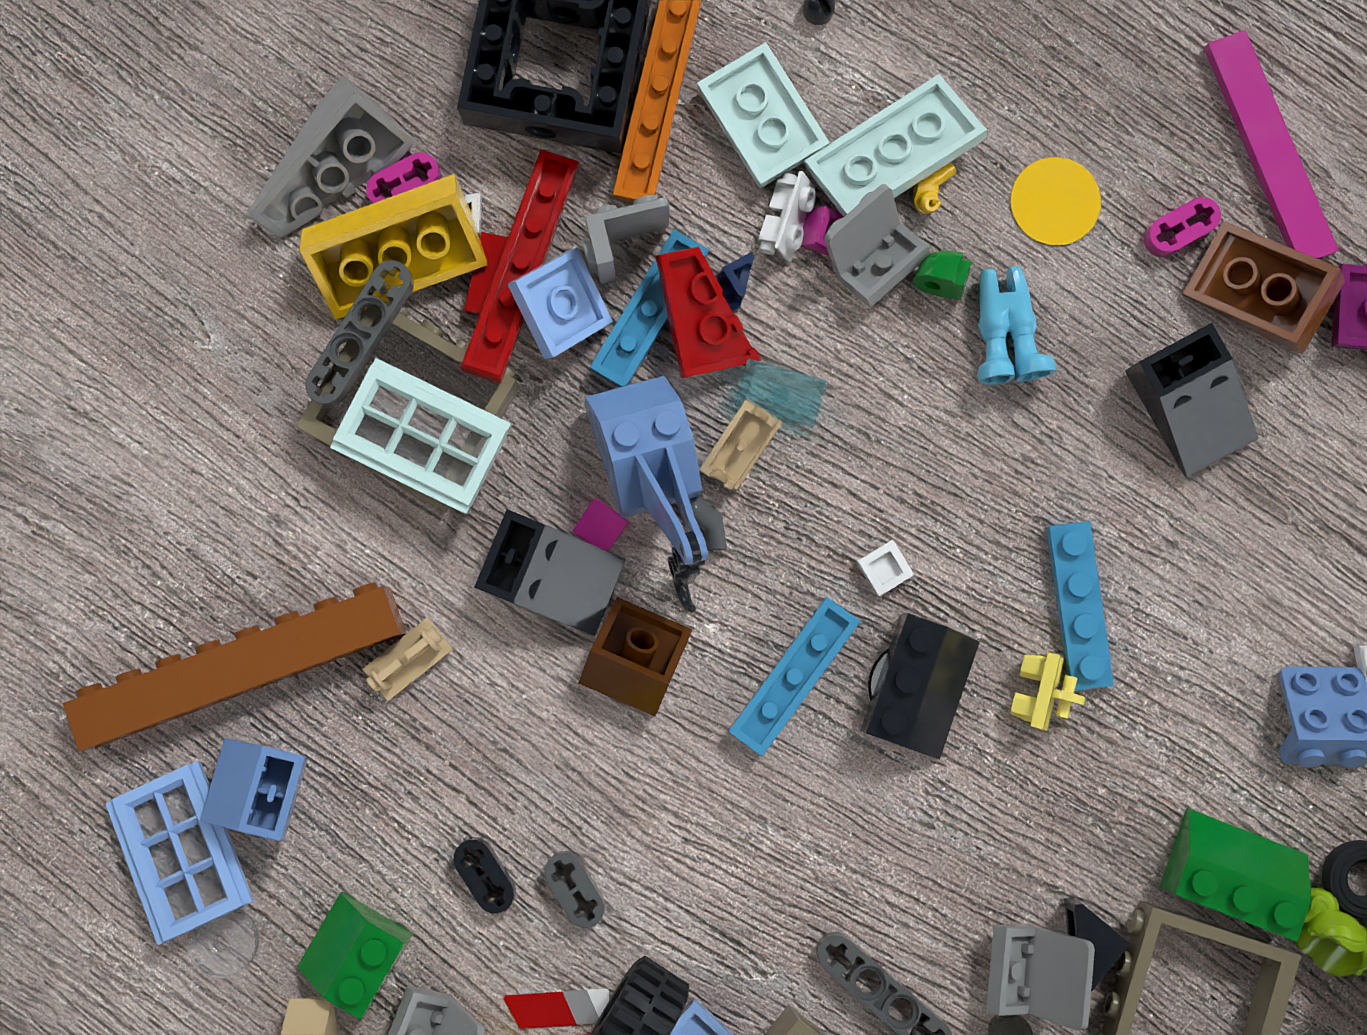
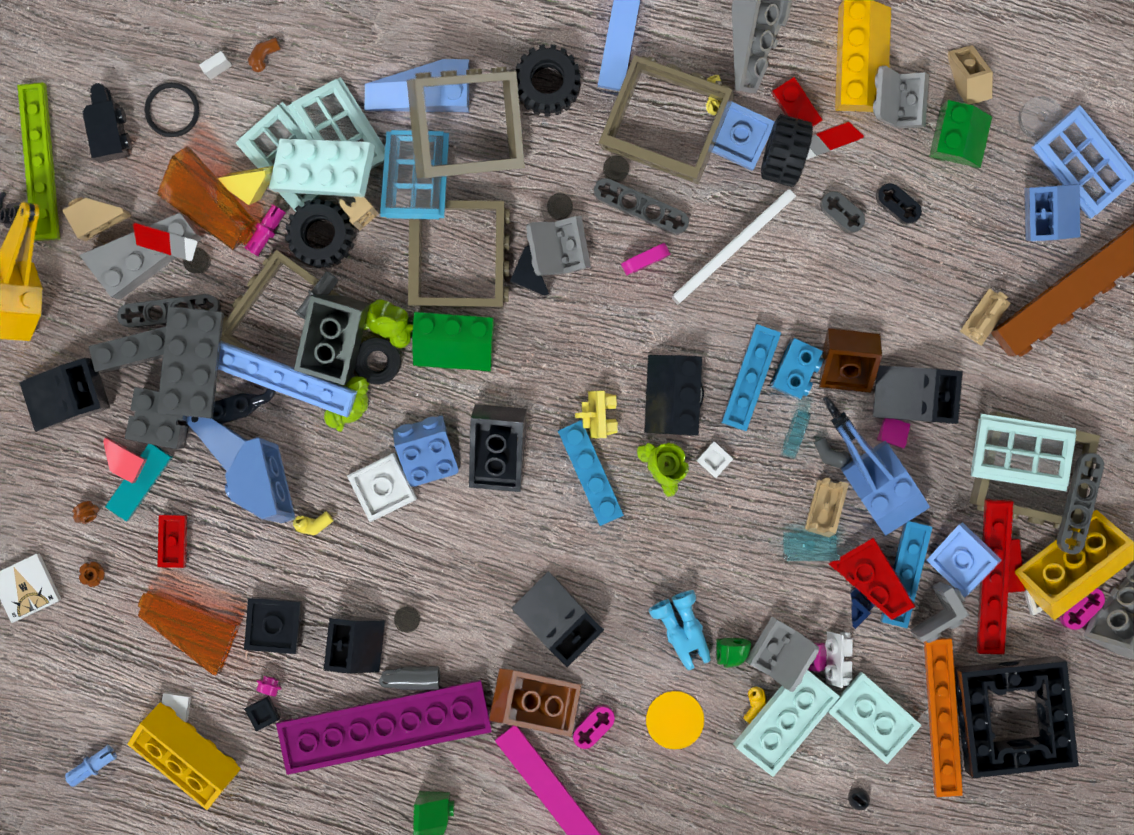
camera: 160 degrees right, 5 degrees up
(721, 667) = (797, 369): none -> dark azure brick
(752, 569) = (795, 433): none -> clear light blue beam
(761, 888) = (733, 246): none -> white tile
(902, 910) = (645, 259): none -> dark pink beam
(979, 584) = (657, 457): none -> lime hair
(1215, 690) = (497, 447): none -> black slope

